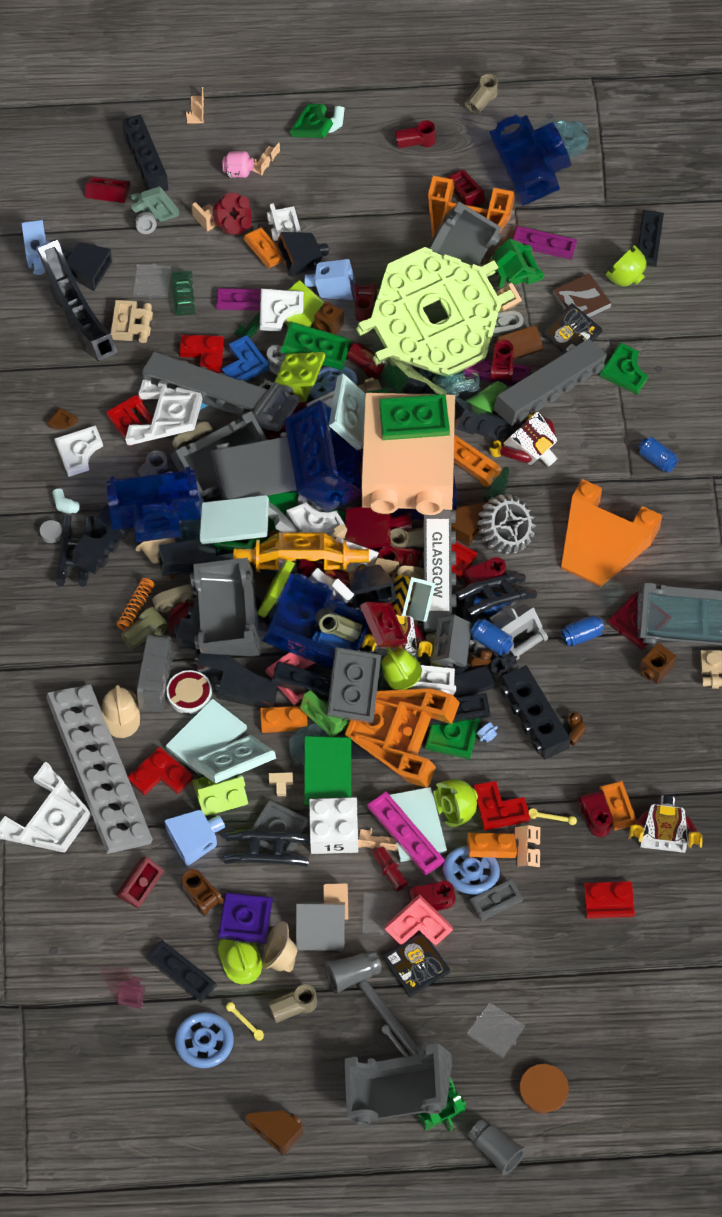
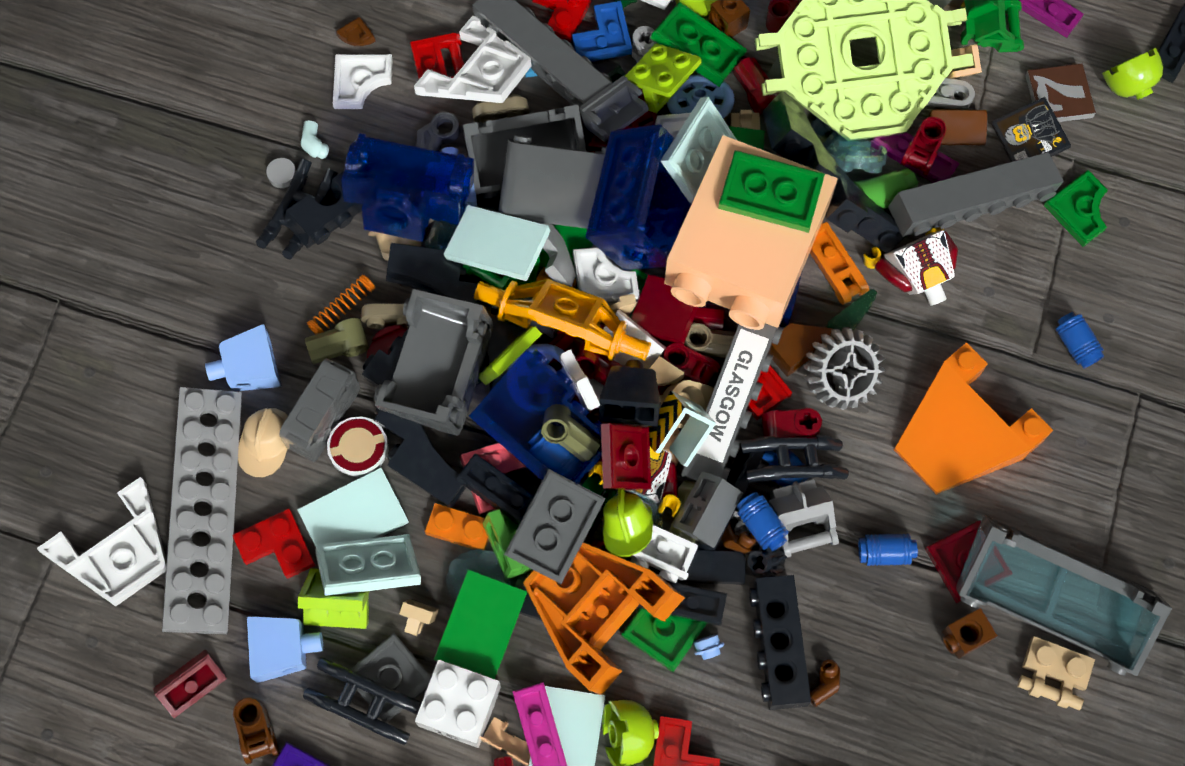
camera: 20 degrees right, 10 degrees up
(86, 662) = (246, 361): none -> light blue torso

